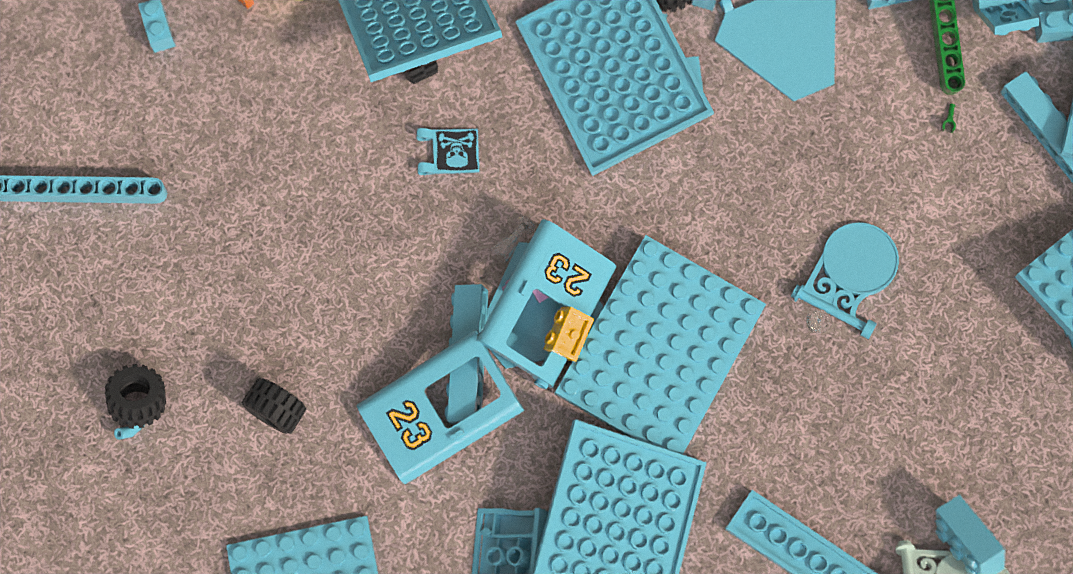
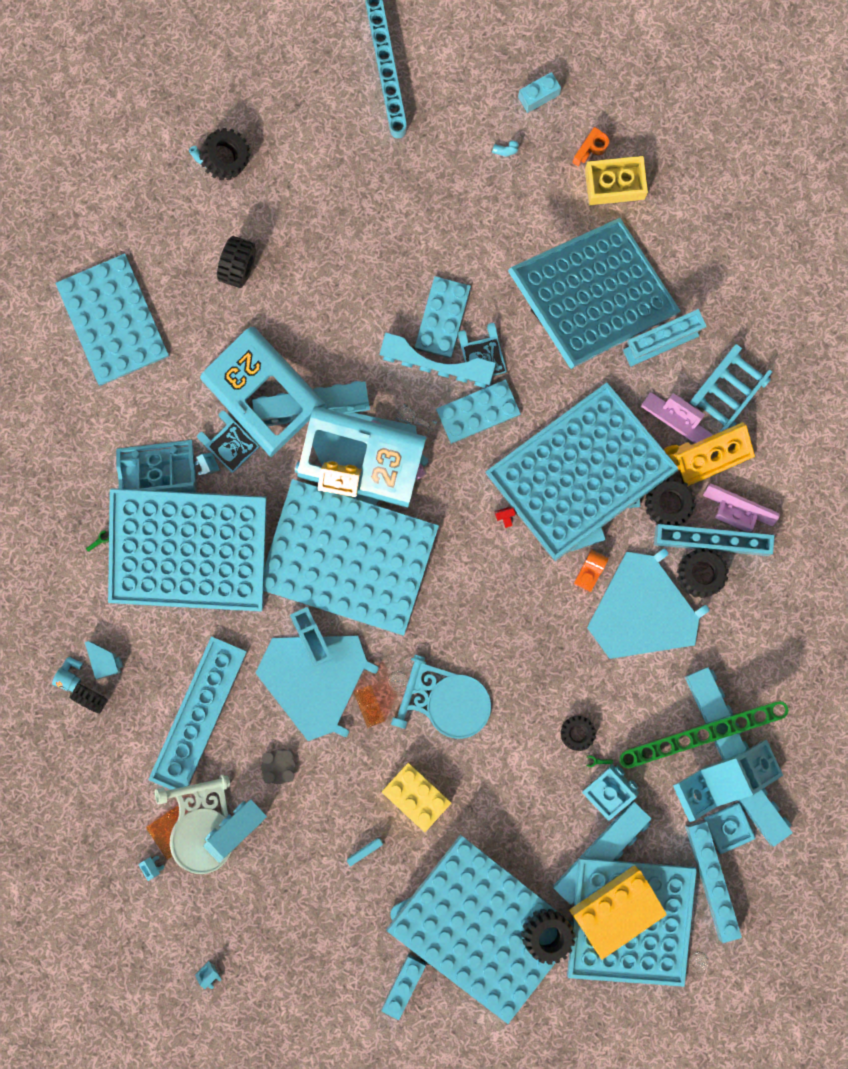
camera: 75 degrees right, 10 degrees up
(215, 78) = (506, 151): none -> medium azure arm
(396, 187) = (442, 317): none -> medium azure plate
(423, 240) = (476, 370): none -> medium azure arch
(494, 462) = (231, 444): none -> flag
(513, 492) = (207, 464): none -> medium azure tile
(517, 169) = (478, 411): none -> medium azure plate
(647, 161) = (505, 514): none -> tile
(725, 79) = (591, 570): none -> orange plate
(748, 409) = (310, 636): none -> medium azure slope
(799, 418) = (312, 694): none -> medium azure flag
(843, 358) = (369, 706): none -> clear orange hinge
(897, 480) = (278, 767): none -> dark grey piece
(920, 122) = (566, 733): none -> black tyre
(959, 325) = (416, 797): none -> light yellow brick
(987, 110) = (611, 791): none -> medium azure plate
(1014, 397) = (364, 851): none -> medium azure tile

